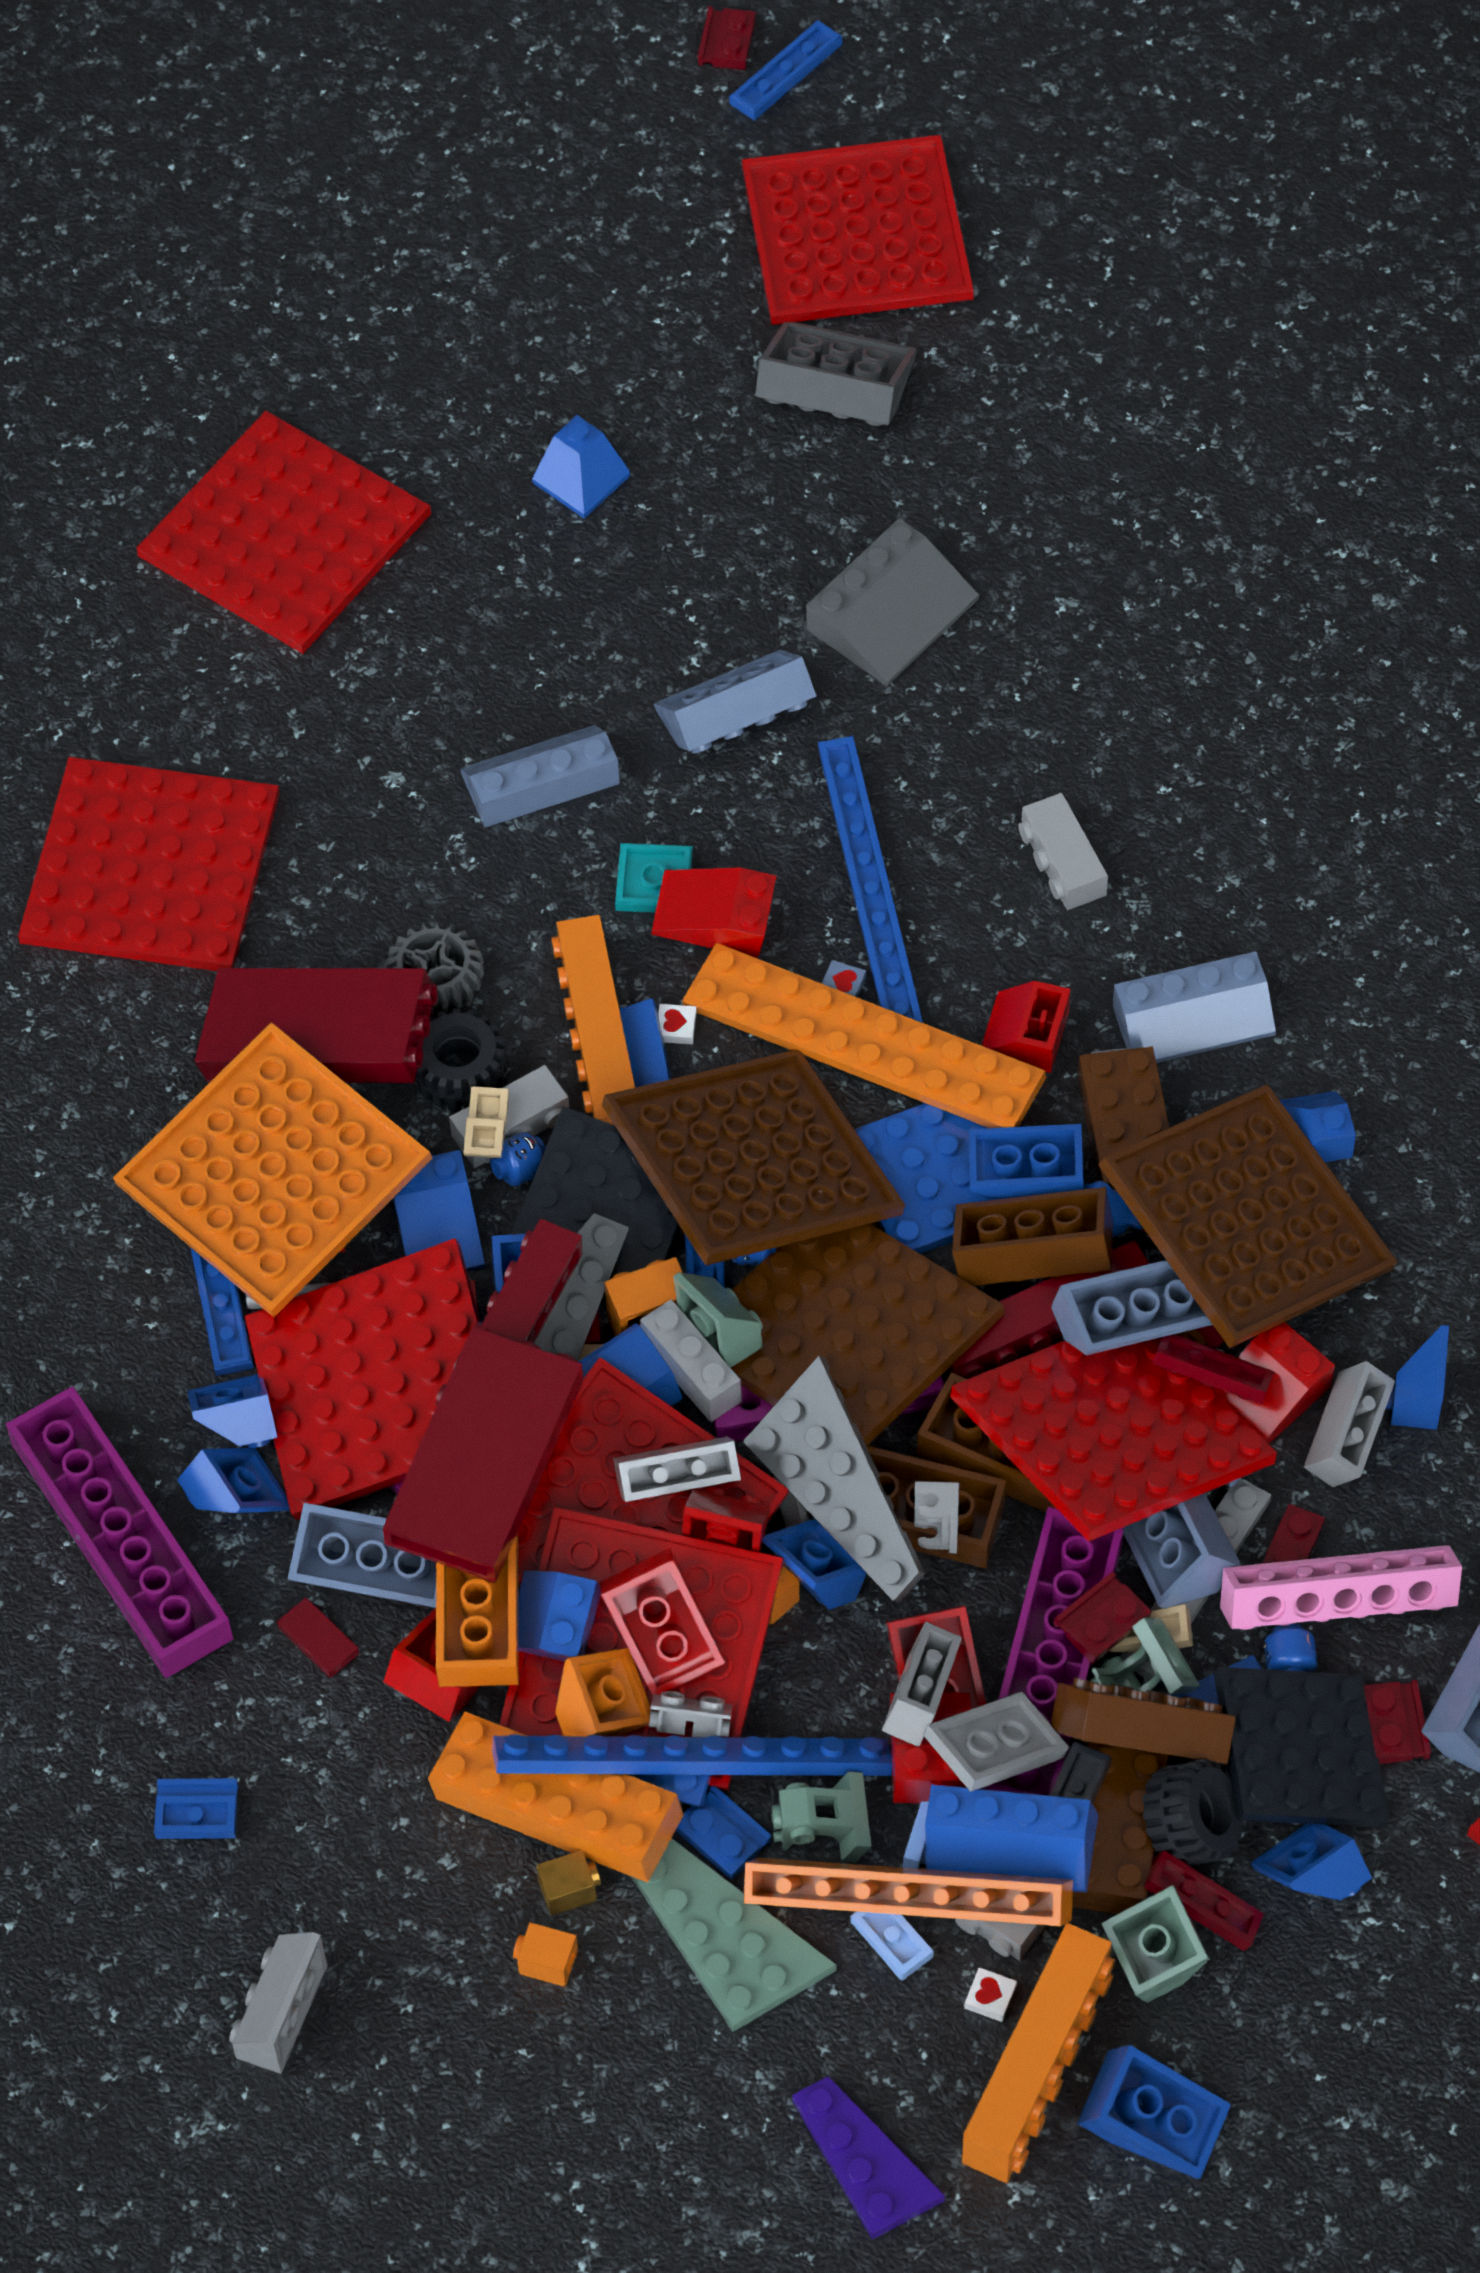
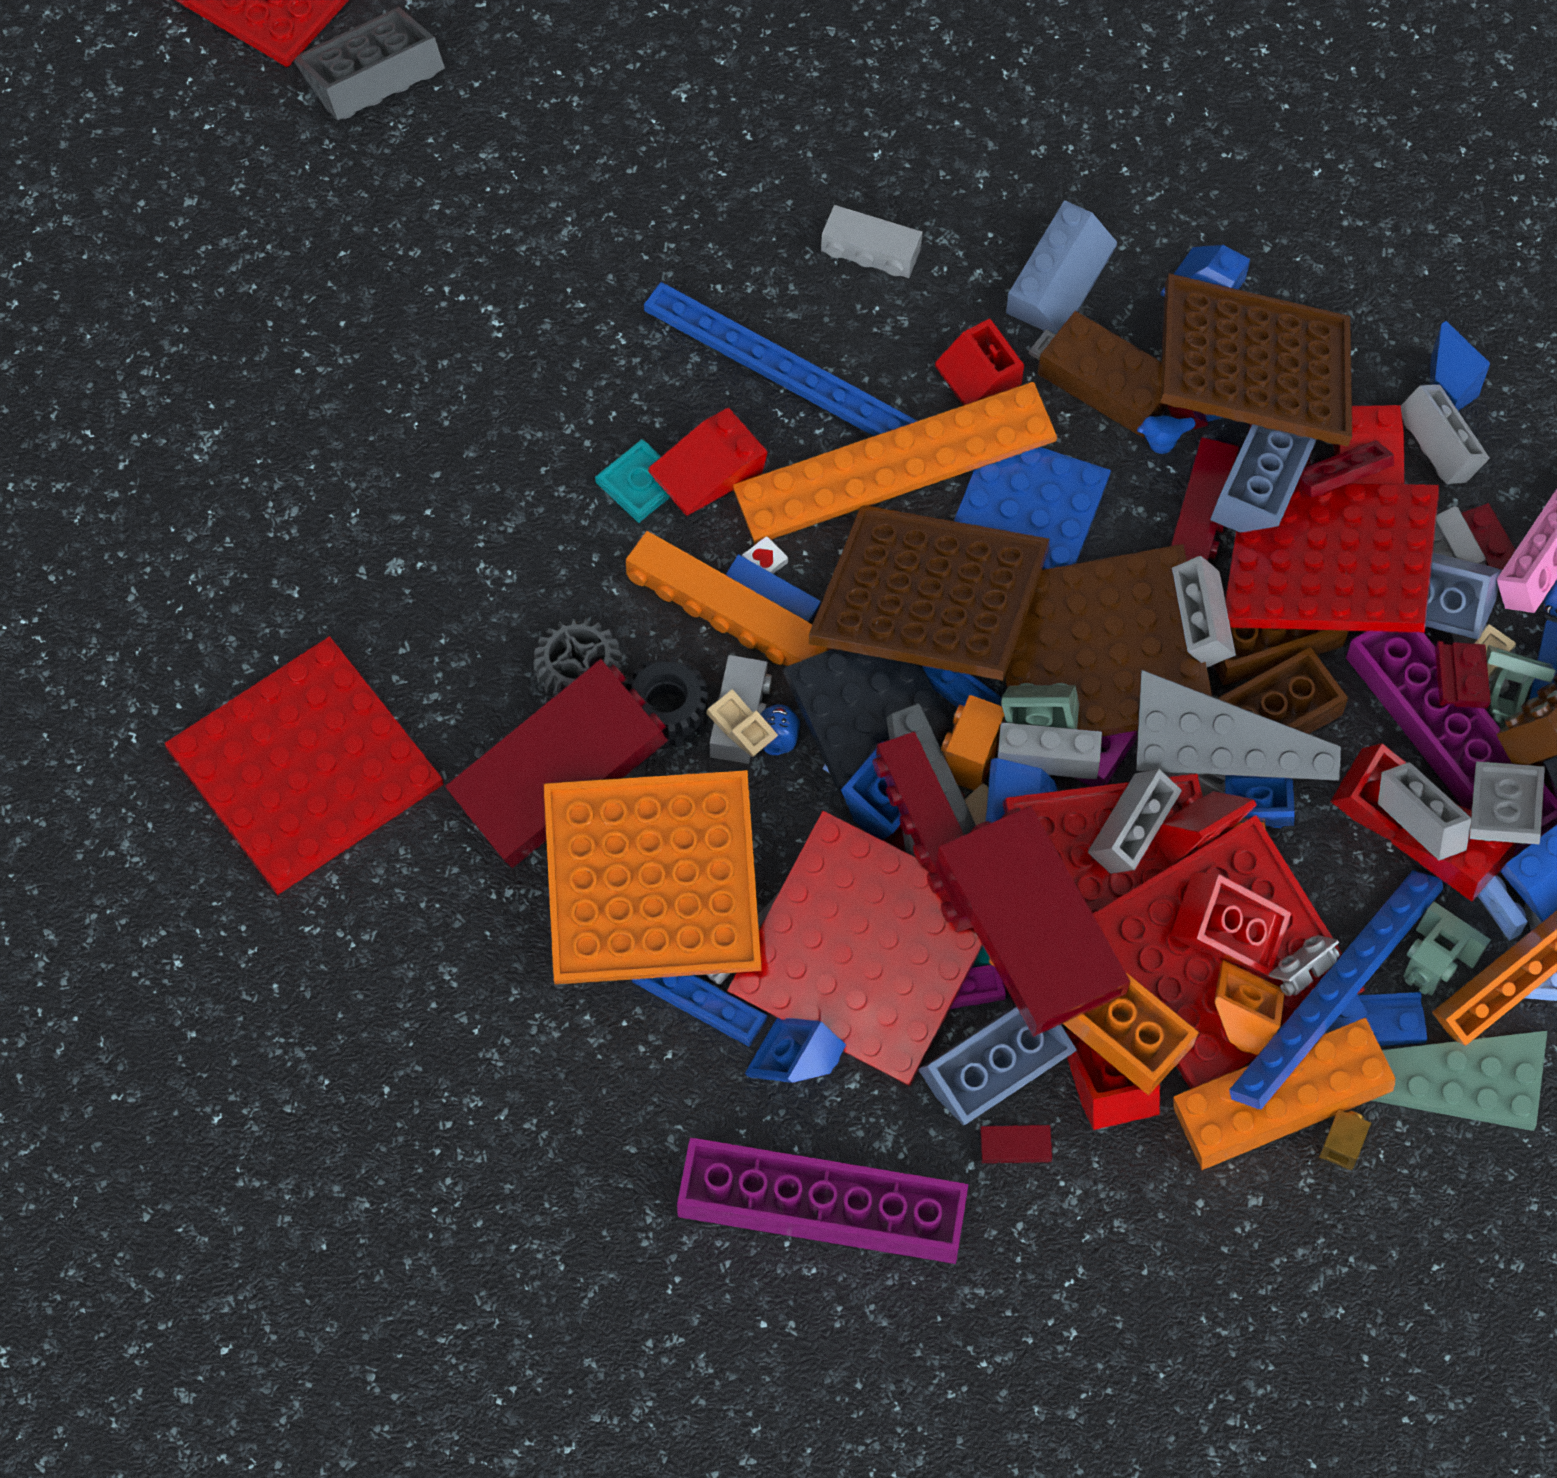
camera: 50 degrees left, 5 degrees up
(196, 1808) = (1076, 1322): blue plate -> none
(232, 1482) = (855, 1102): blue slope -> none
(279, 2000) = (1276, 1383): light grey slope -> none
(283, 531) = (125, 470): red plate -> none
(438, 1209) = (779, 813): blue slope -> none
(542, 775) = (490, 476): sand blue slope -> none
(546, 1954) = (1386, 1194): orange brick -> none
(556, 1614) = (1172, 976): blue slope -> none
(580, 467) = (278, 261): blue slope -> none
(736, 700) = (558, 322): sand blue slope -> none
(845, 978) = (832, 437): sand blue tile -> none
(890, 603) = (582, 180): dark grey slope -> none
(937, 1509) = (1318, 698): light grey hinge -> none
(939, 1364) = (1203, 611): none -> light grey brick
(1026, 1160) = (1091, 446): blue slope -> none
(1033, 1237) = (1149, 487): reddish brown brick -> none
(1258, 1522) = (1460, 536): none -> light grey slope

